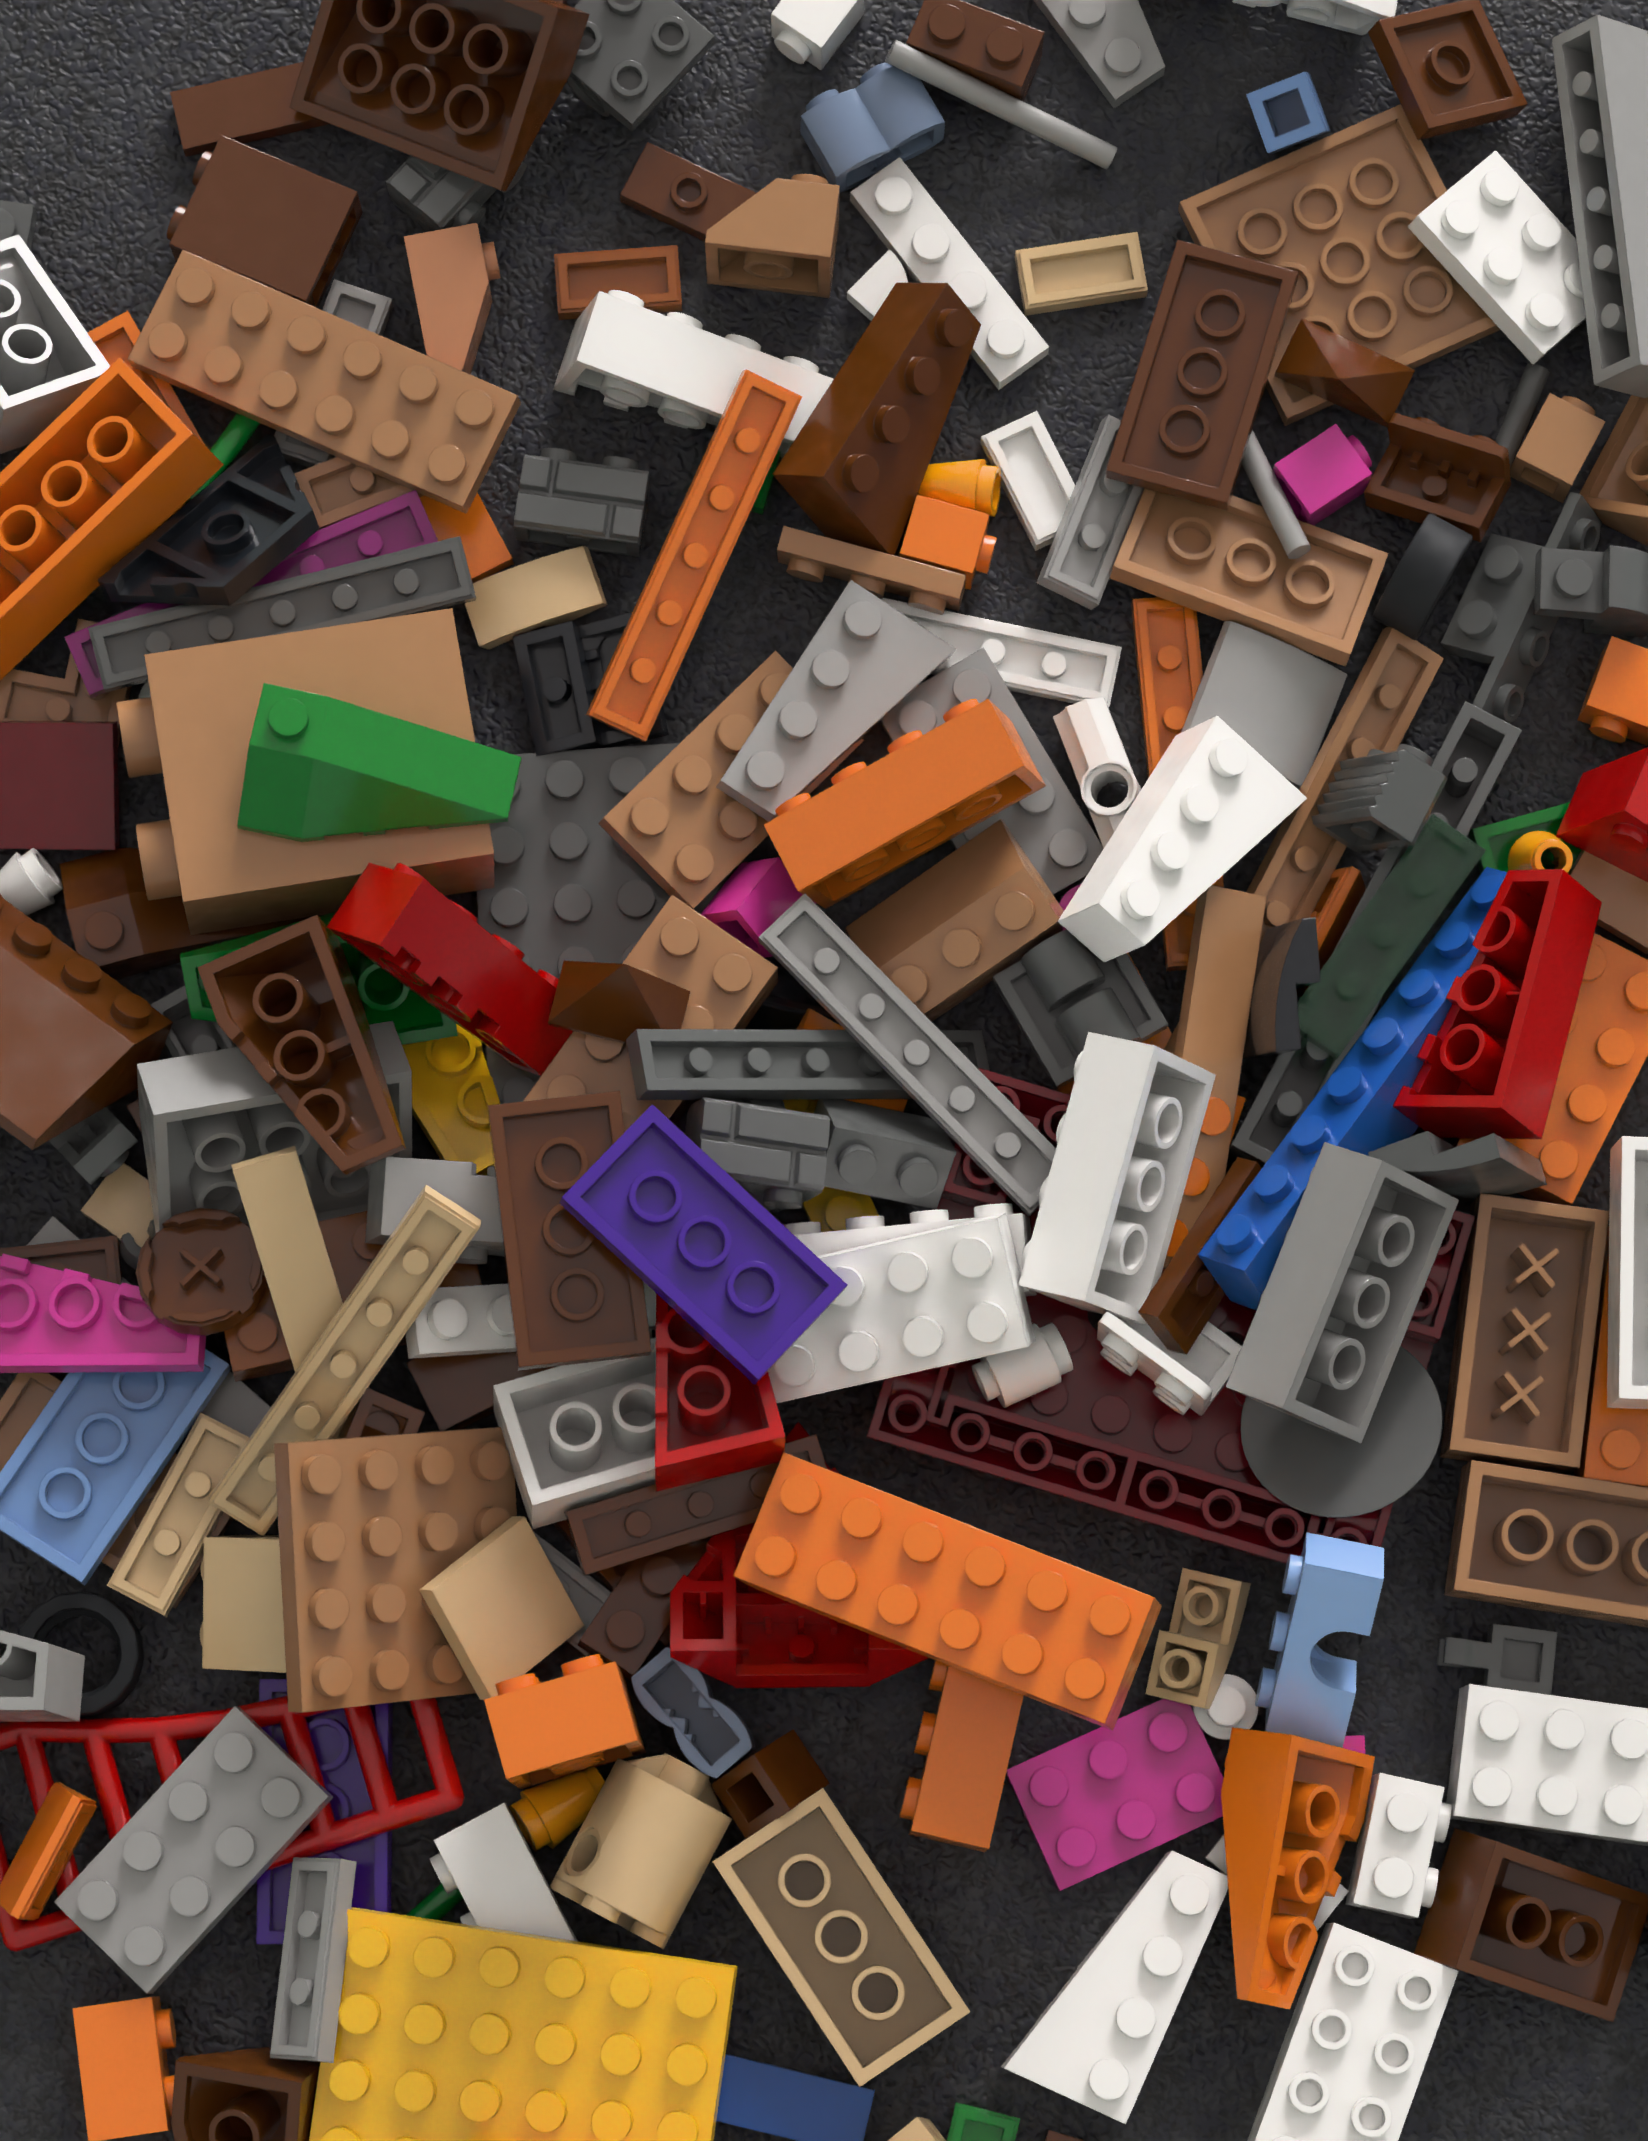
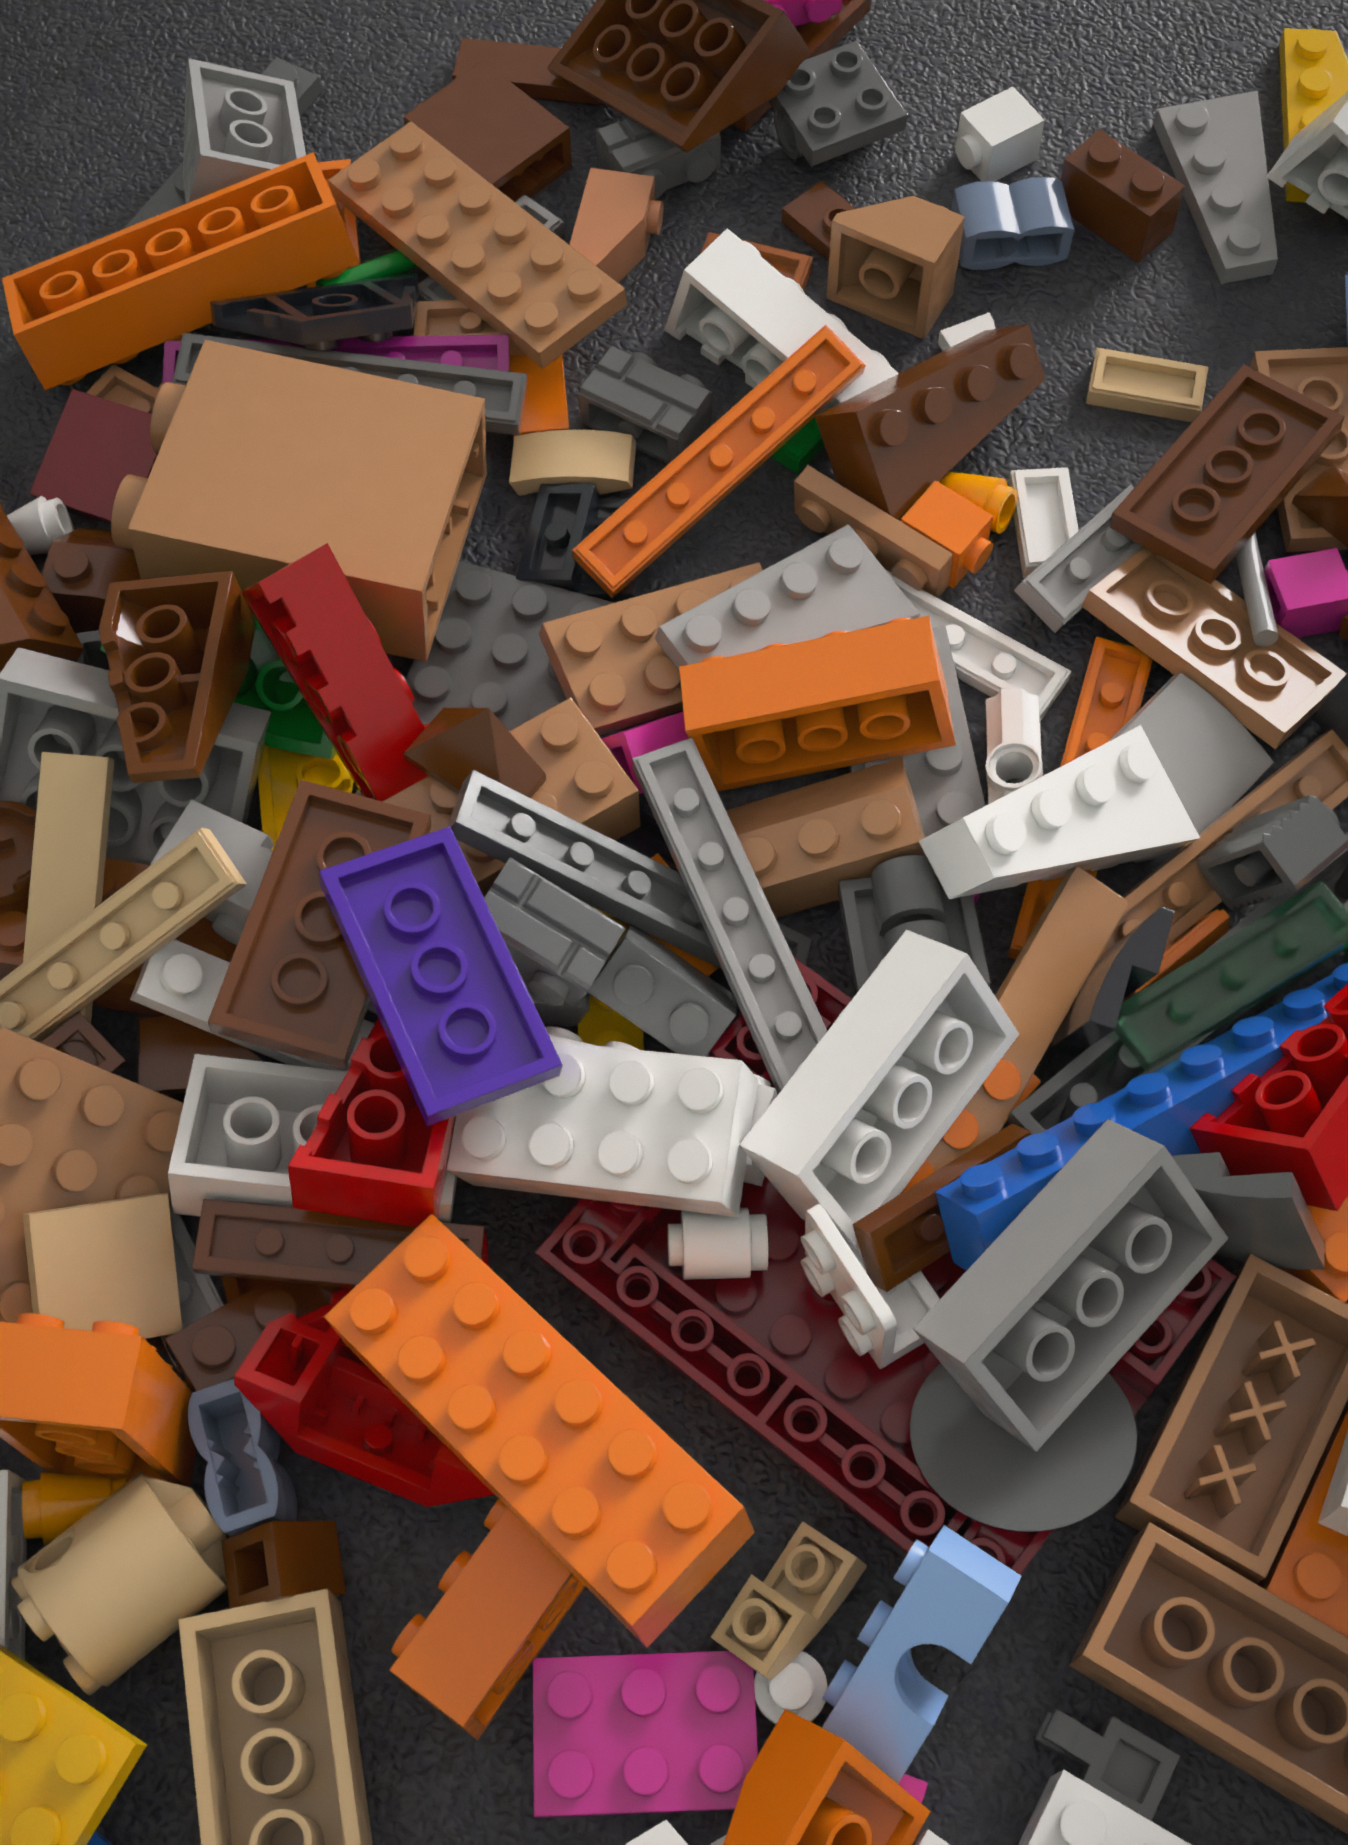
camera: 25 degrees right, 15 degrees down
(349, 770) = (321, 467): green wedge -> none
(937, 253) = (1014, 298): white plate -> none
(1001, 104) = (1127, 237): light grey bar -> none

